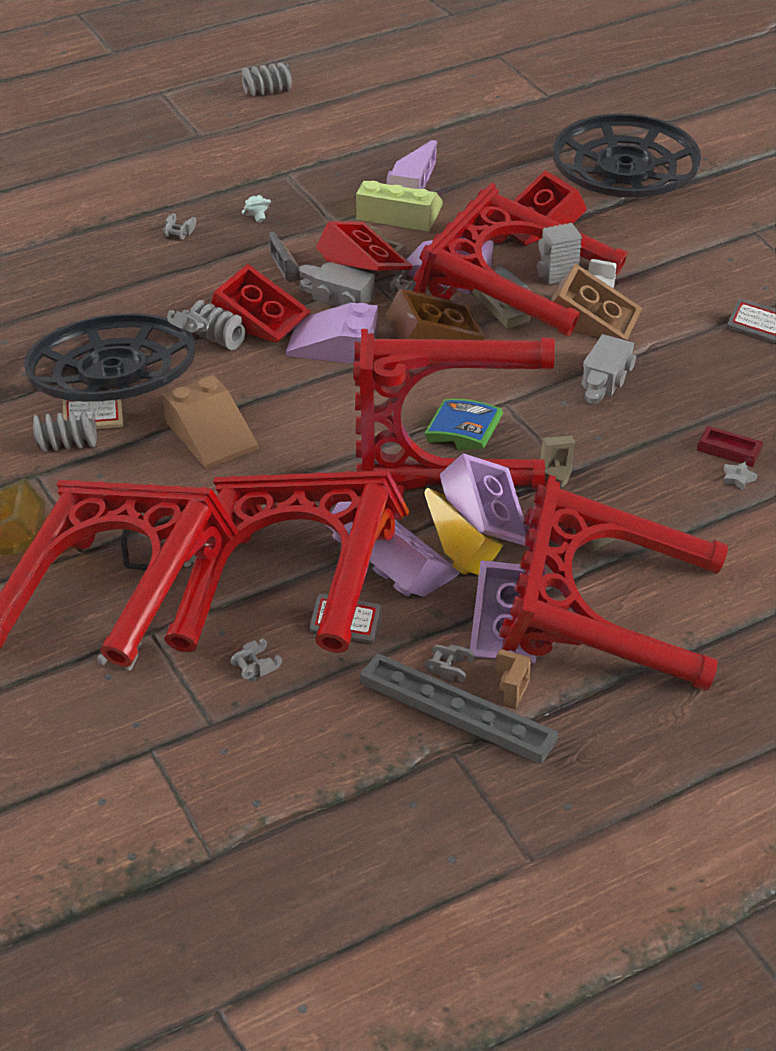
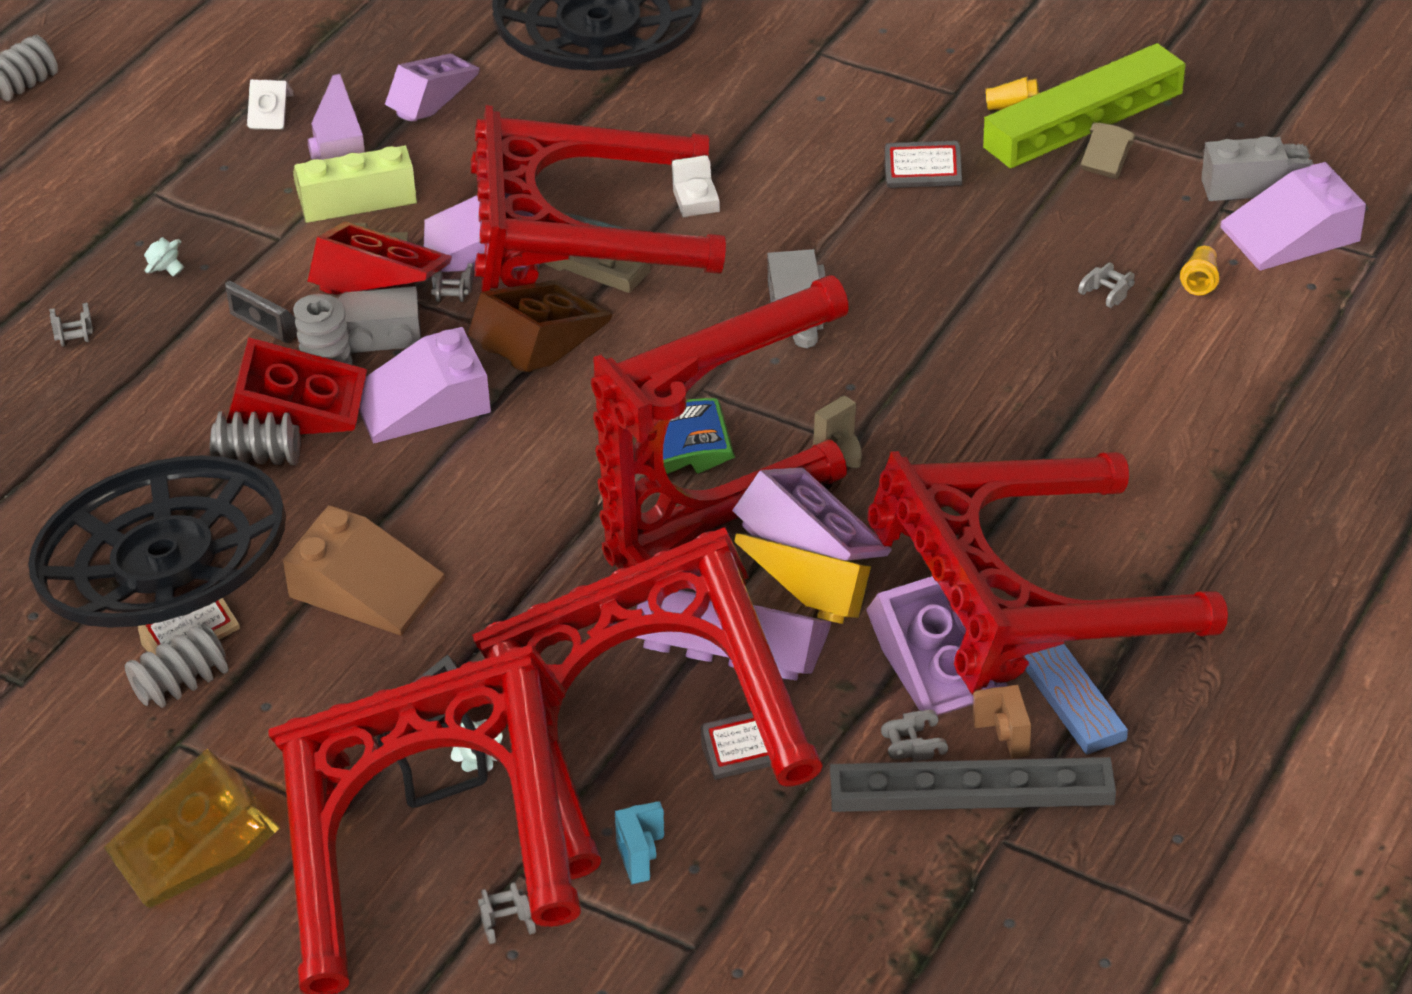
camera: 30 degrees left, 0 degrees up
(188, 322) = (228, 447): light grey piece -> none
(227, 638) = (635, 838): none -> medium azure bracket
(259, 667) = (697, 849): light grey piece -> none
(297, 276) = (323, 327): none -> light grey piece
(387, 145) = (268, 104): none -> white bracket
(486, 165) = (428, 85): none -> lavender slope
(552, 199) = (556, 97): red slope -> none
(559, 252) = (630, 168): light grey brick -> none
(573, 686) = (1075, 699): none -> medium blue tile
(600, 306) = (706, 209): medium nougat slope -> none
(729, 446) = (1011, 333): dark red tile -> none
(738, 475) = (1048, 365): light grey piece -> none

